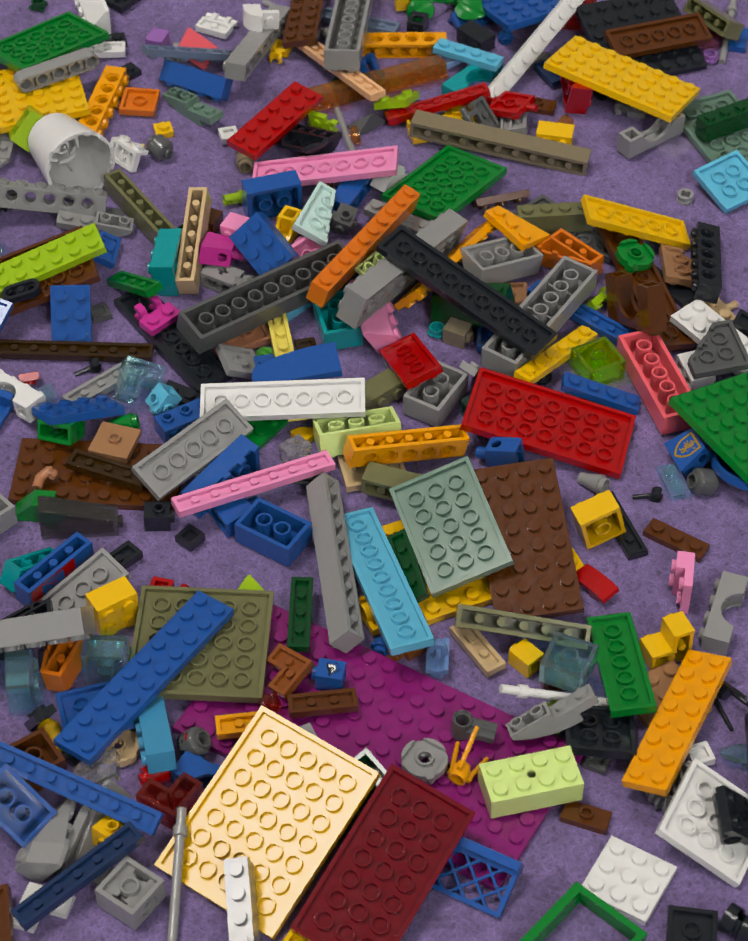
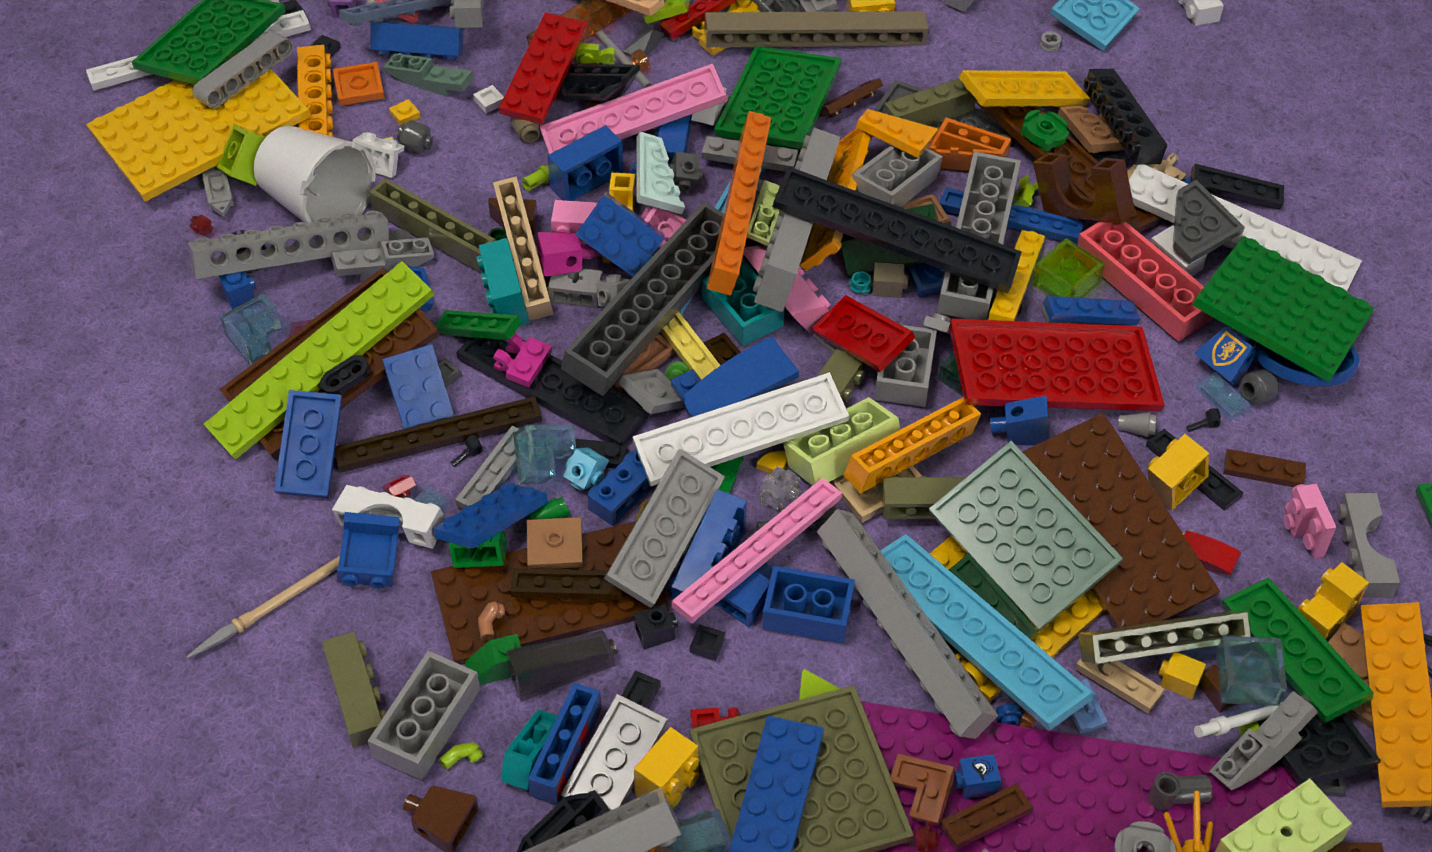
camera: 20 degrees left, 5 degrees up
(300, 614) = (899, 705): dark green plate -> none

